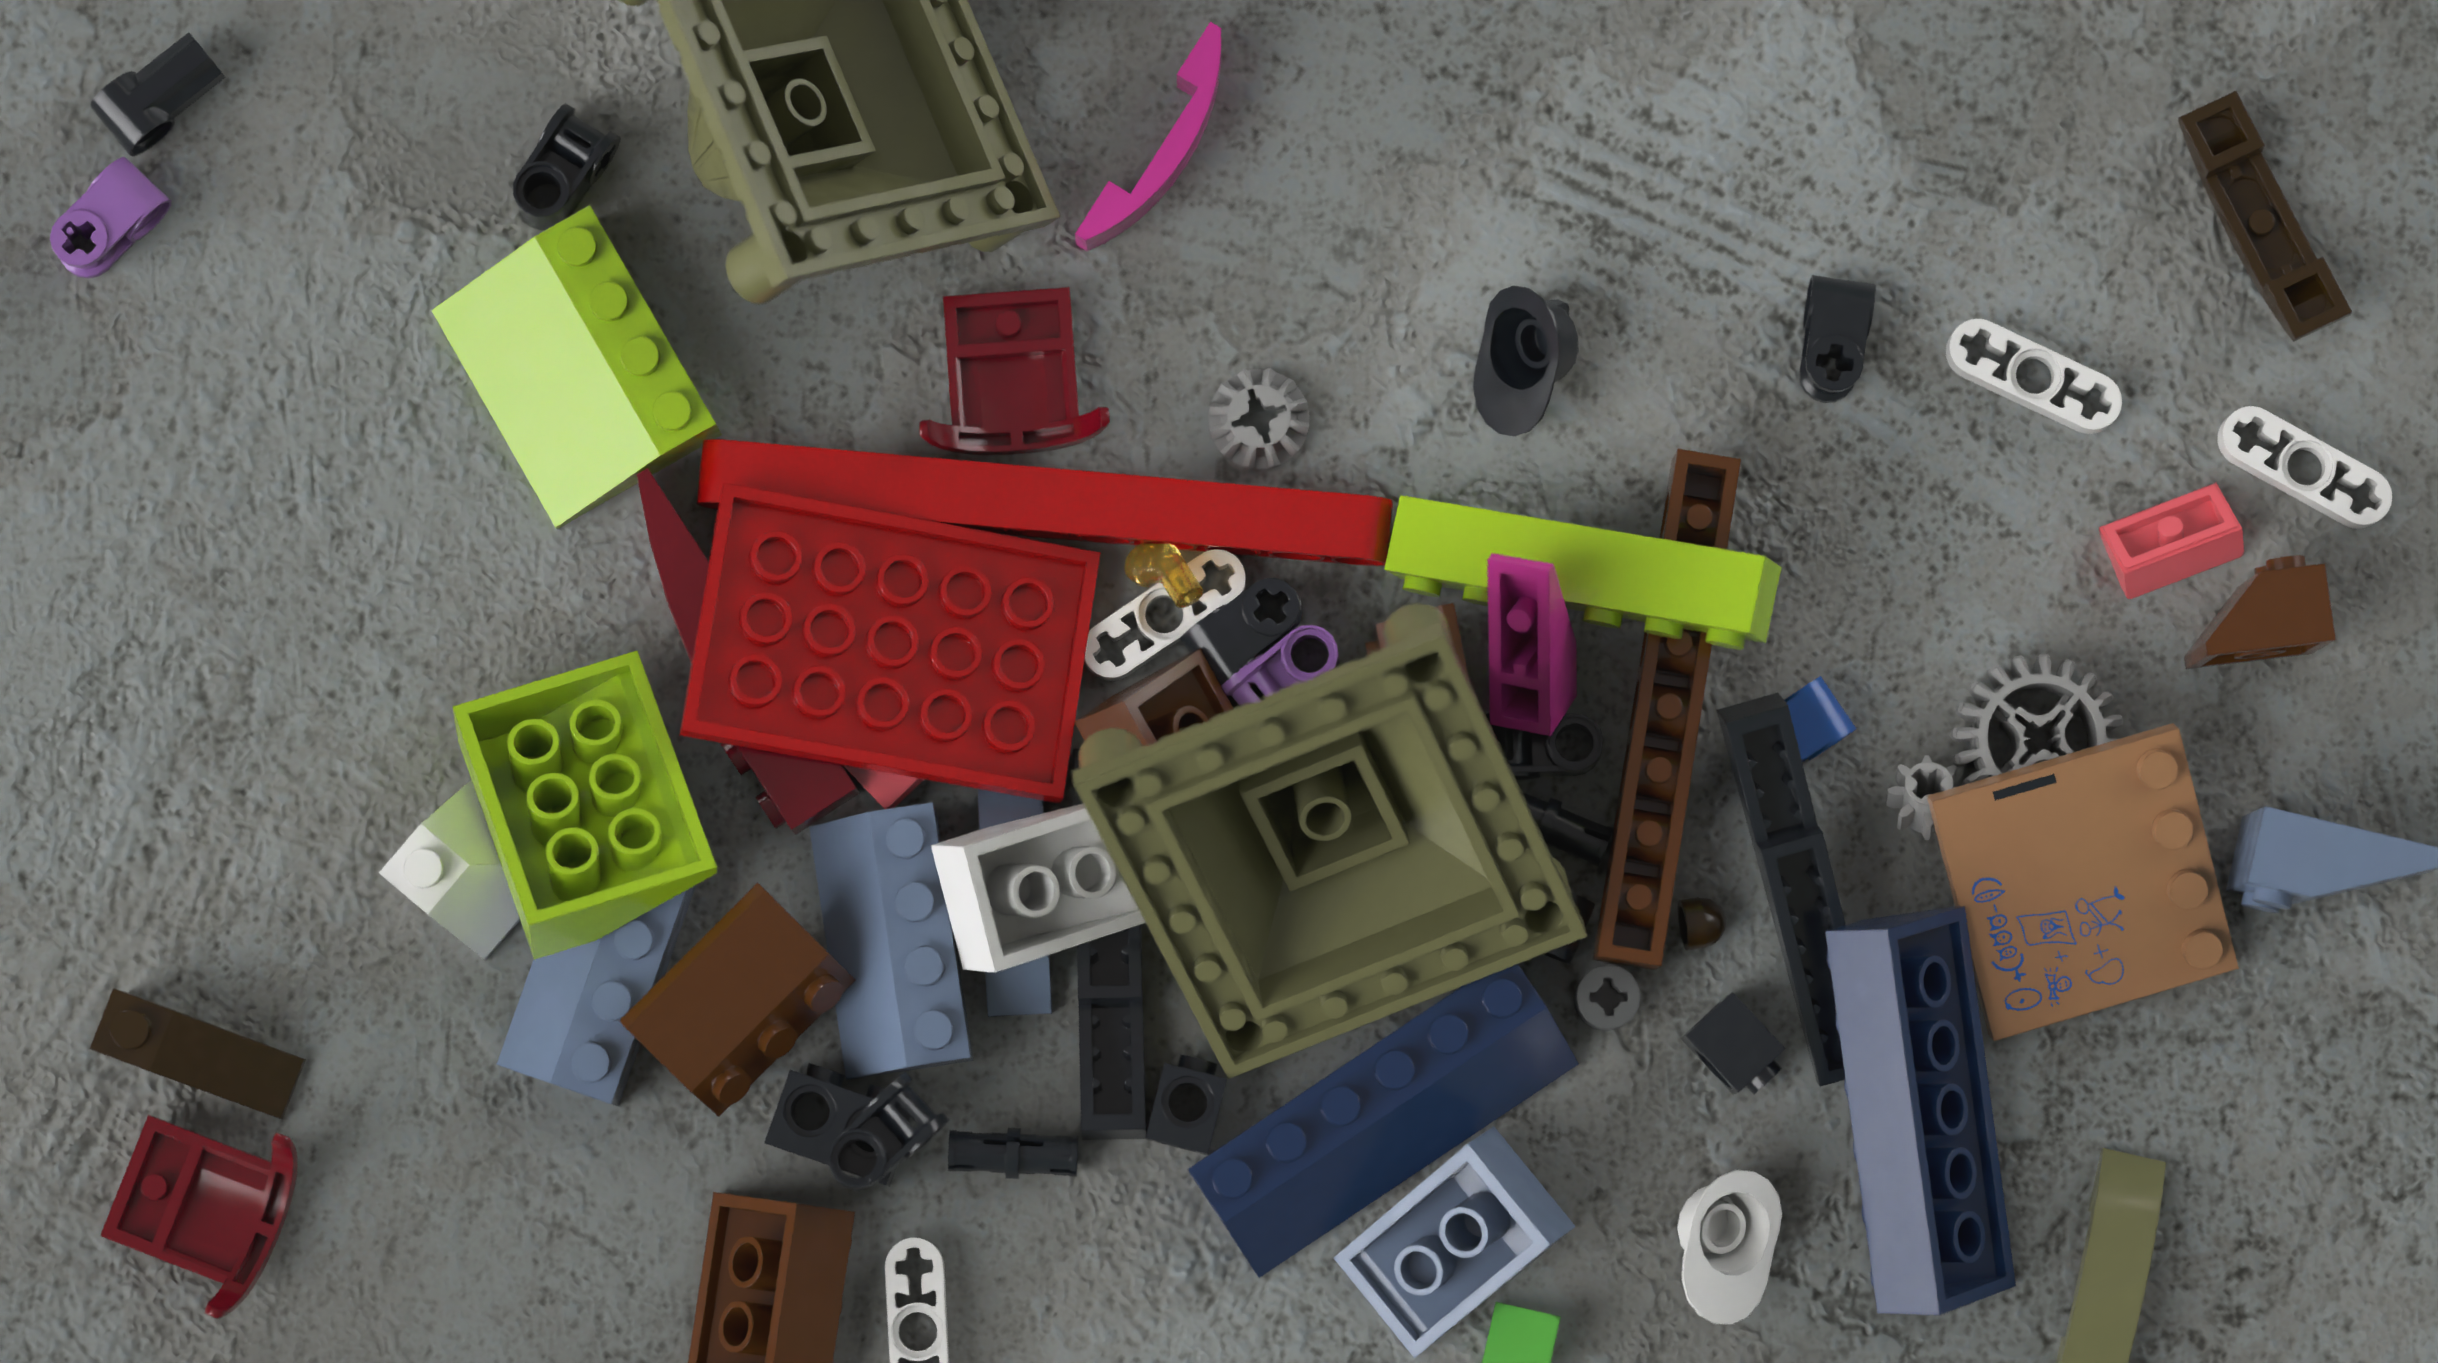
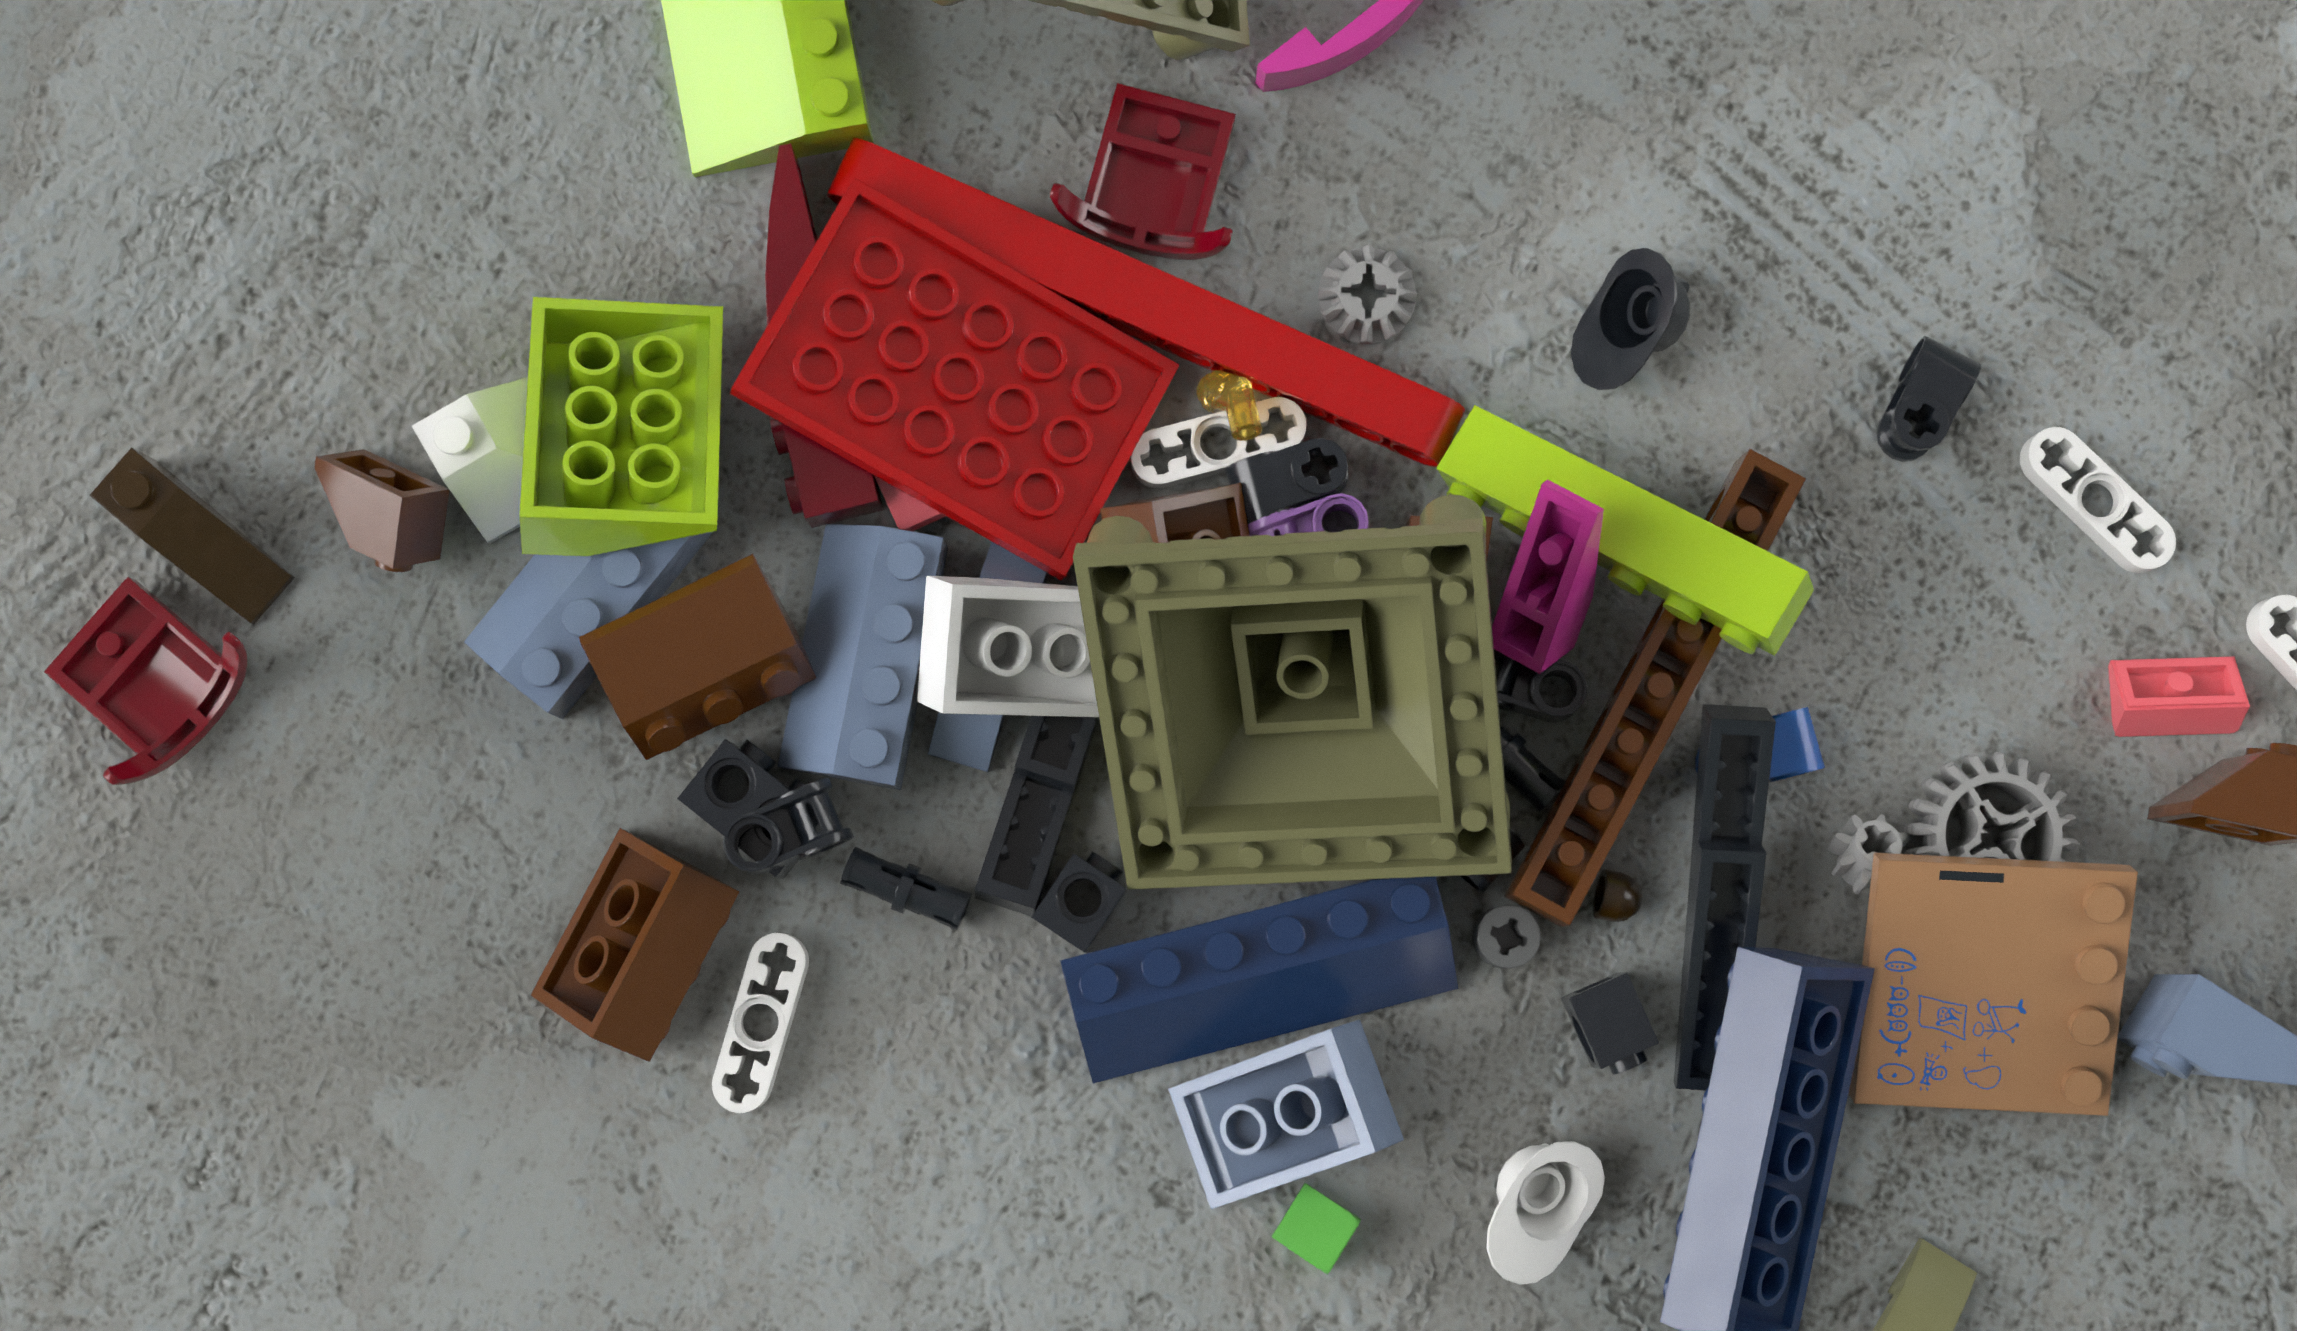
camera: 20 degrees right, 0 degrees up
(376, 961) = (385, 508): none -> reddish brown slope

